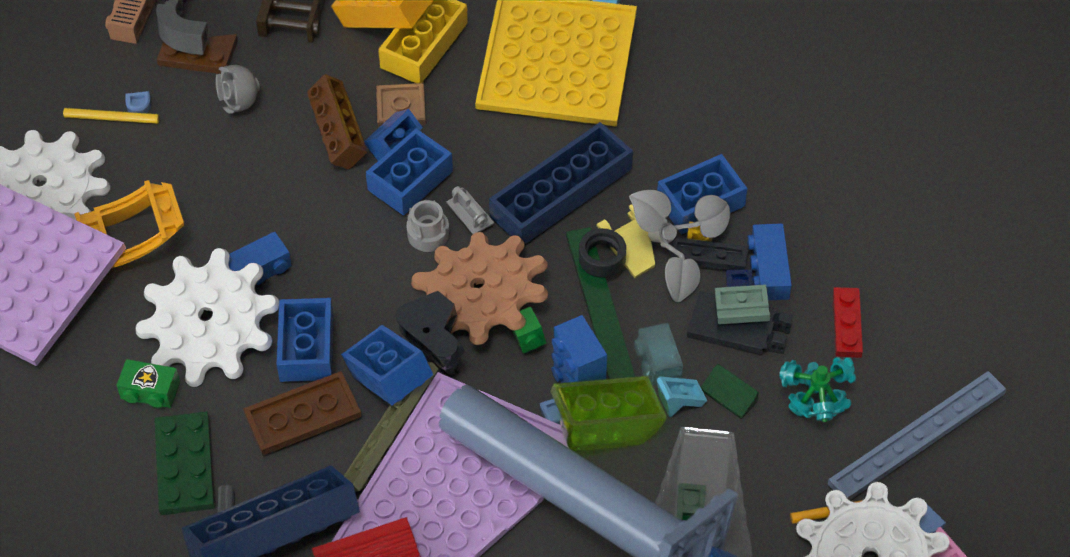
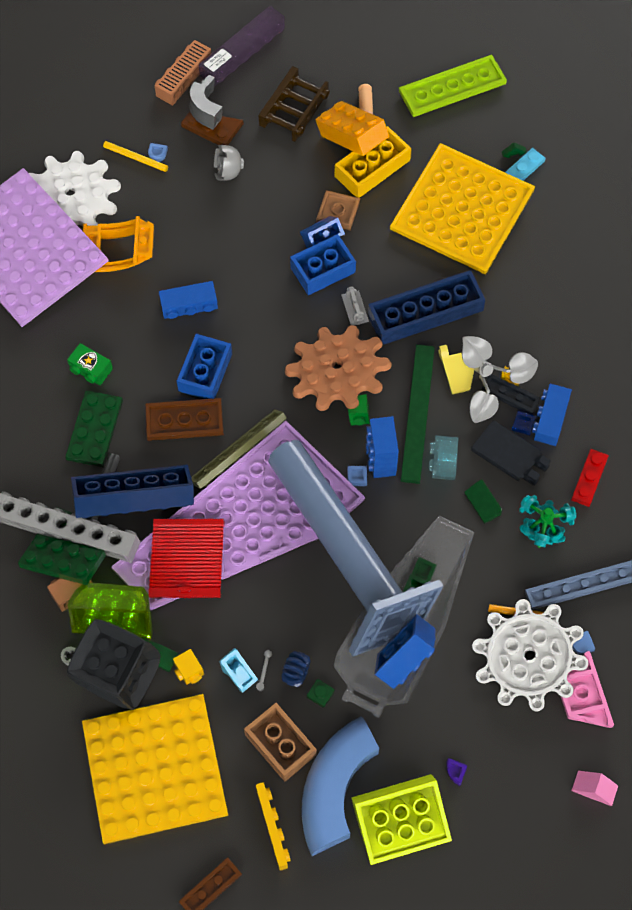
camera: 20 degrees right, 10 degrees up
(211, 342) = (148, 347): white plate -> none
(337, 122) = (286, 210): reddish brown brick -> none
(387, 364) = (251, 405): blue brick -> none
(427, 226) = (320, 310): light grey piece -> none
(428, 327) = (290, 385): black piece -> none
(602, 237) = (434, 356): black tyre -> none
(608, 412) = (388, 490): clear neon green windscreen -> none
(678, 393) = (447, 491): medium azure slope -> none
(707, 178) = (531, 339): blue brick -> none
(742, 304) = (517, 440): sand green plate -> none

